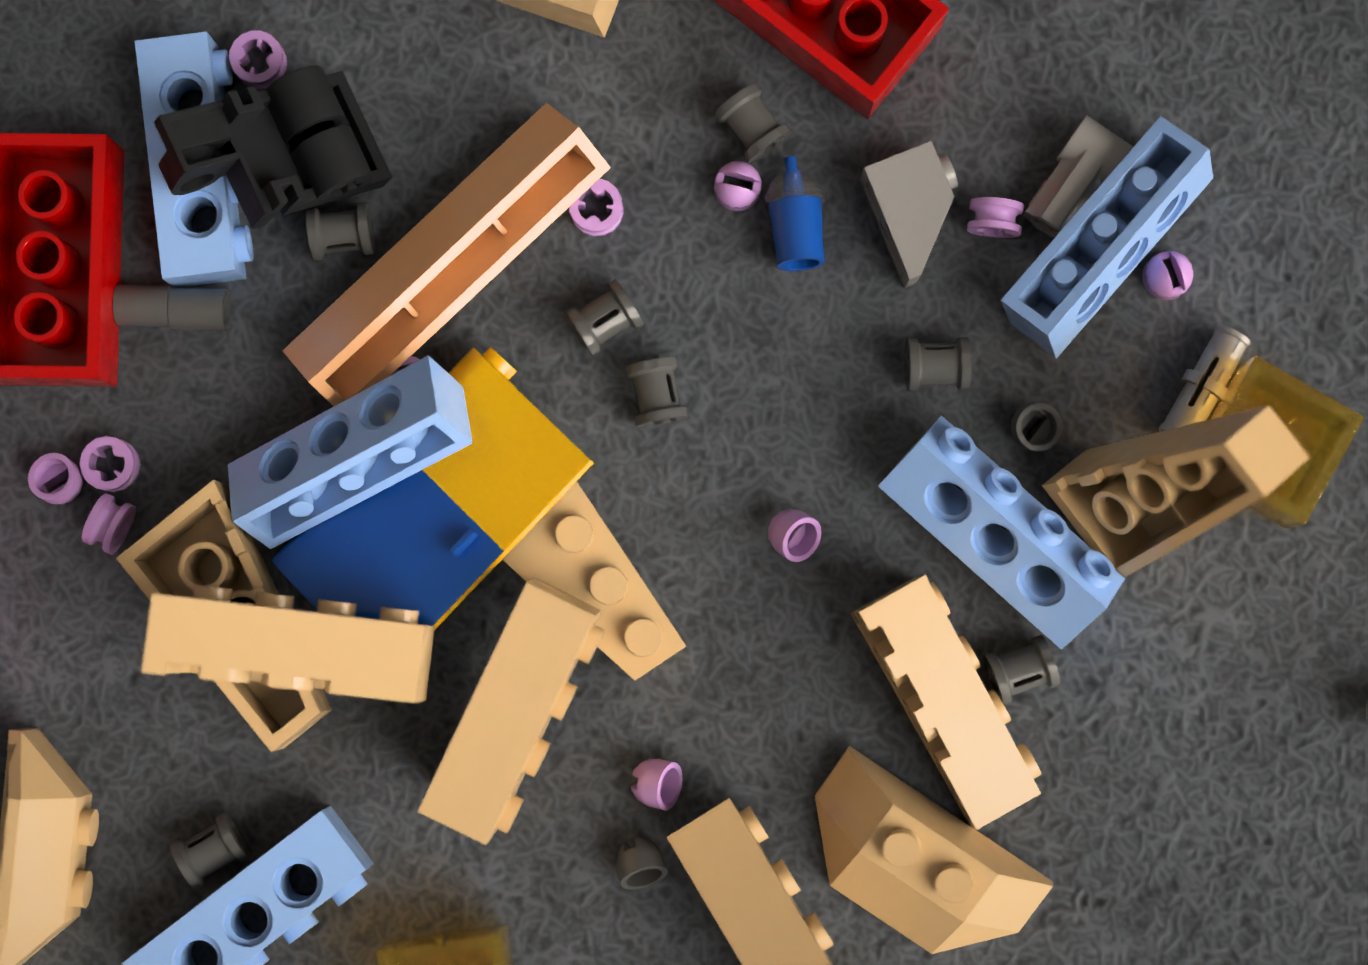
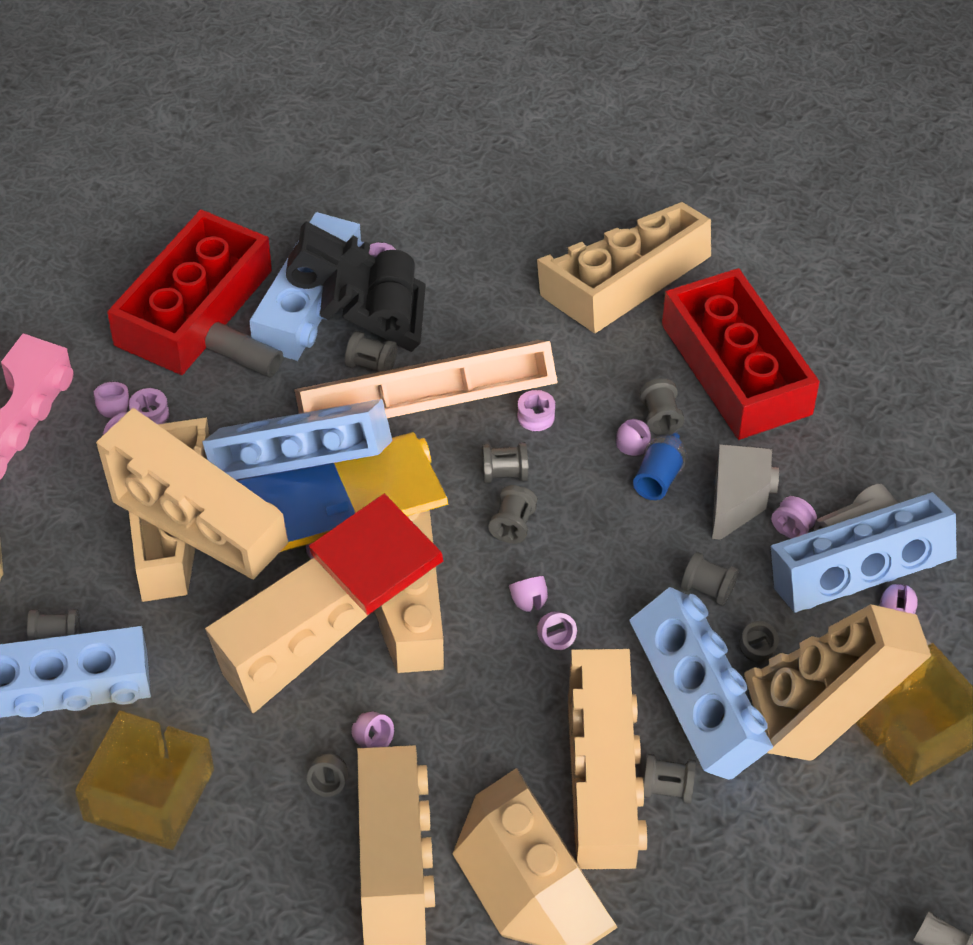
camera: 25 degrees right, 35 degrees down
(569, 623) = (376, 553): none -> red tile
(733, 493) = (529, 592): none -> lavender hinge

